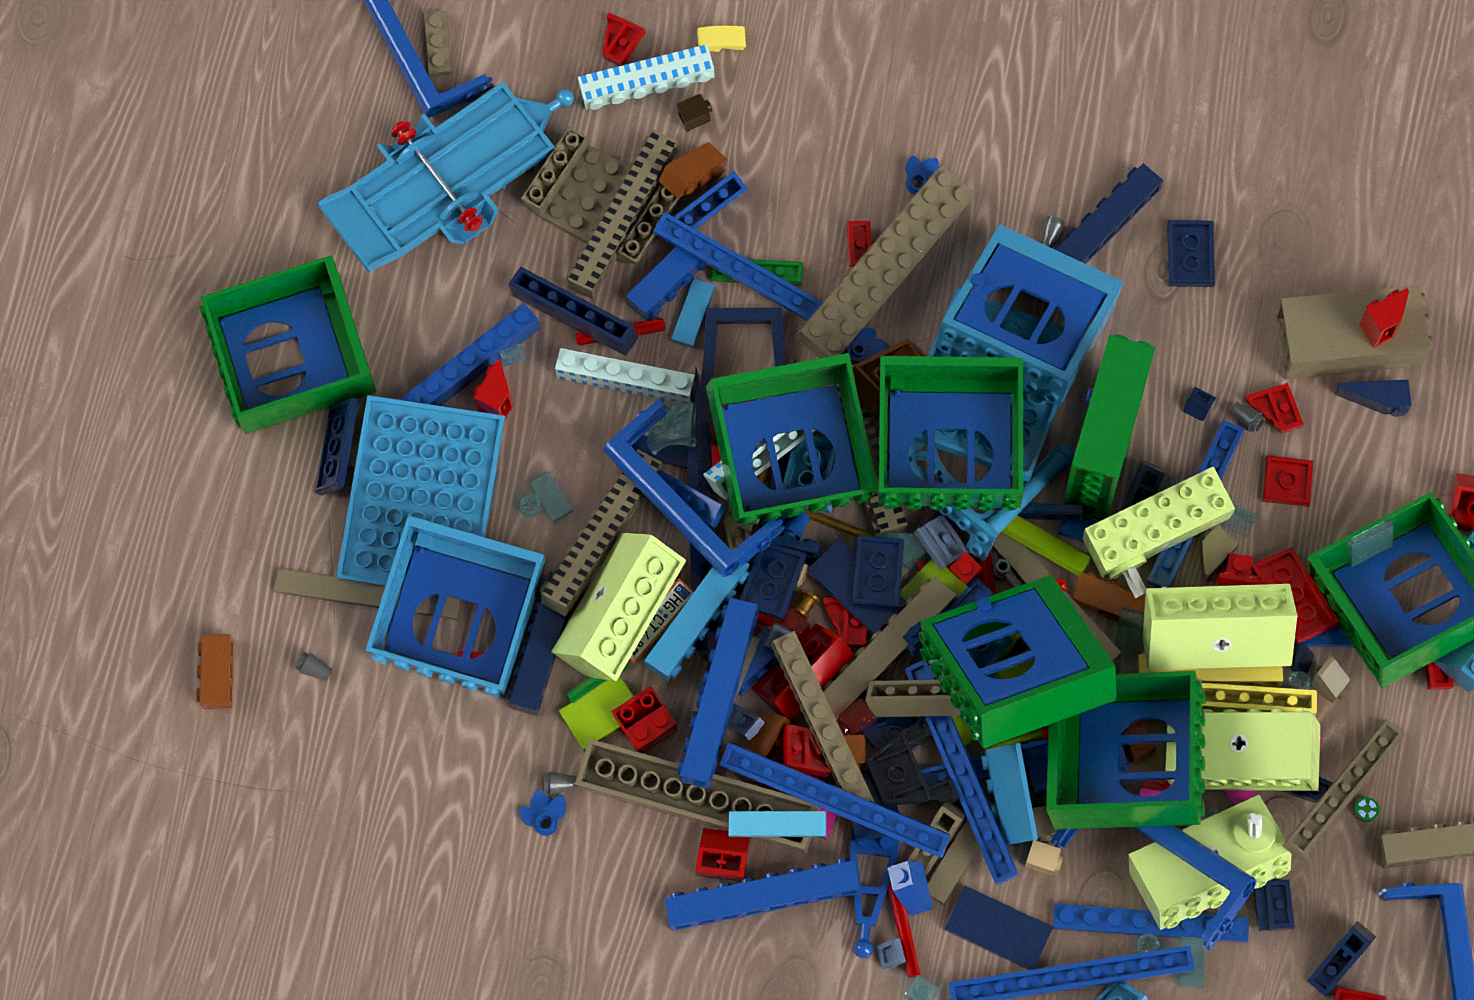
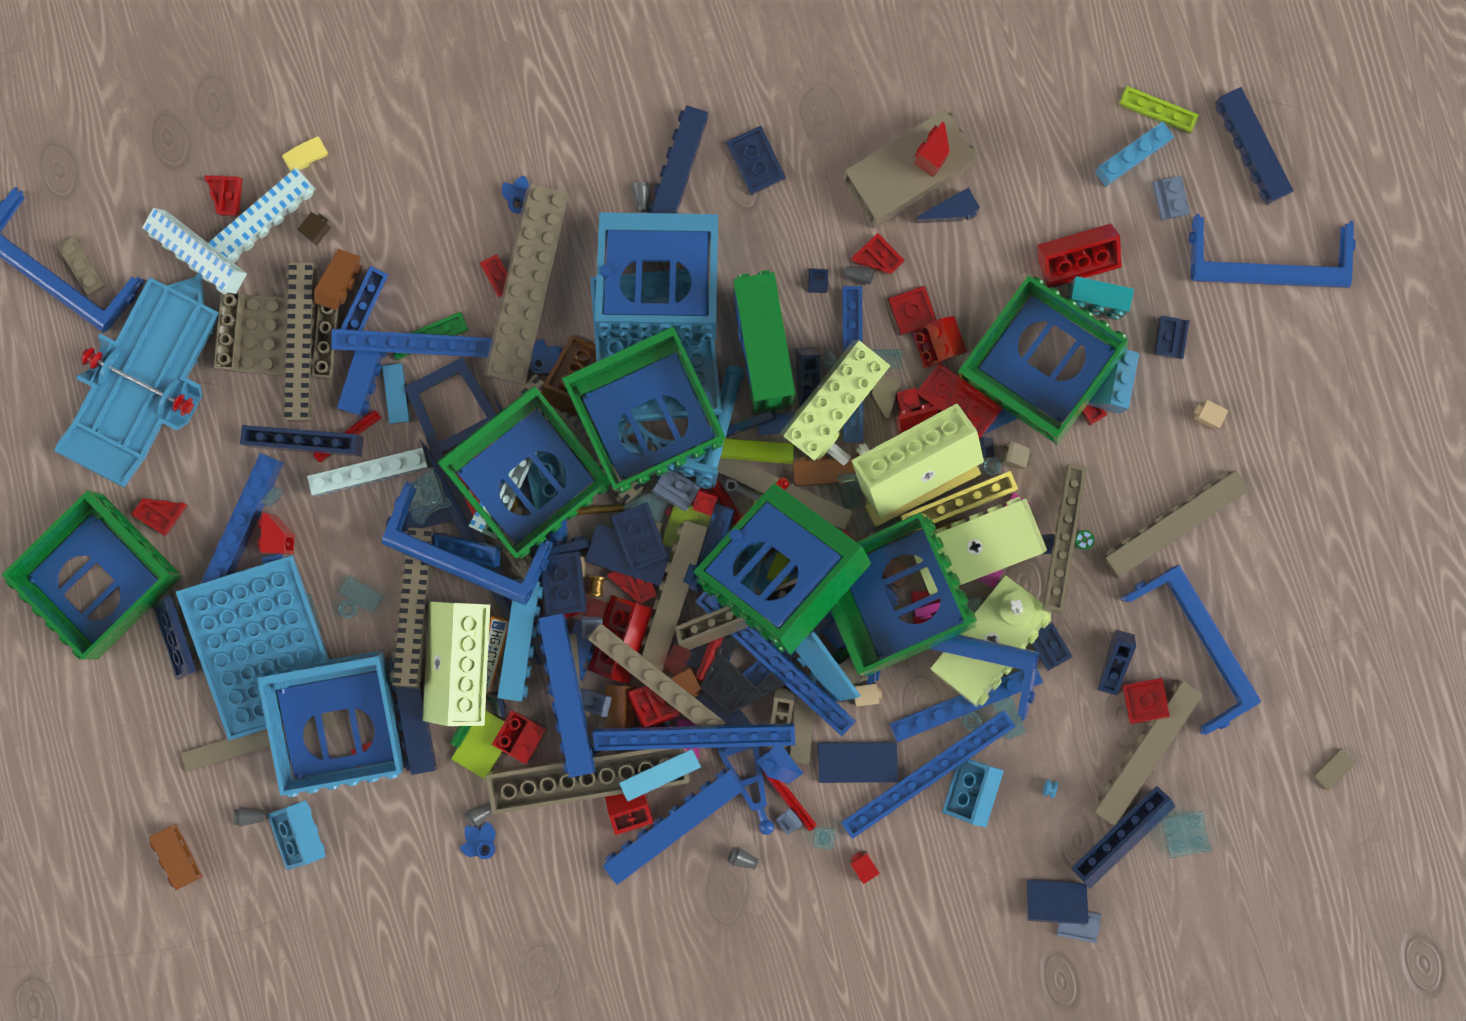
camera: 30 degrees left, 15 degrees up
(354, 710) = (296, 835): none -> dark azure slope
(386, 319) = (159, 514): none -> red wing
(562, 76) = (194, 250): none -> light aqua brick
(637, 675) = (497, 705): none -> slope
(820, 970) = (741, 858): none -> dark grey cone
(890, 734) = (708, 659): none -> red axle
(1302, 524) = (939, 341): none -> red slope
(1370, 543) = (998, 334): clear light blue tile -> none

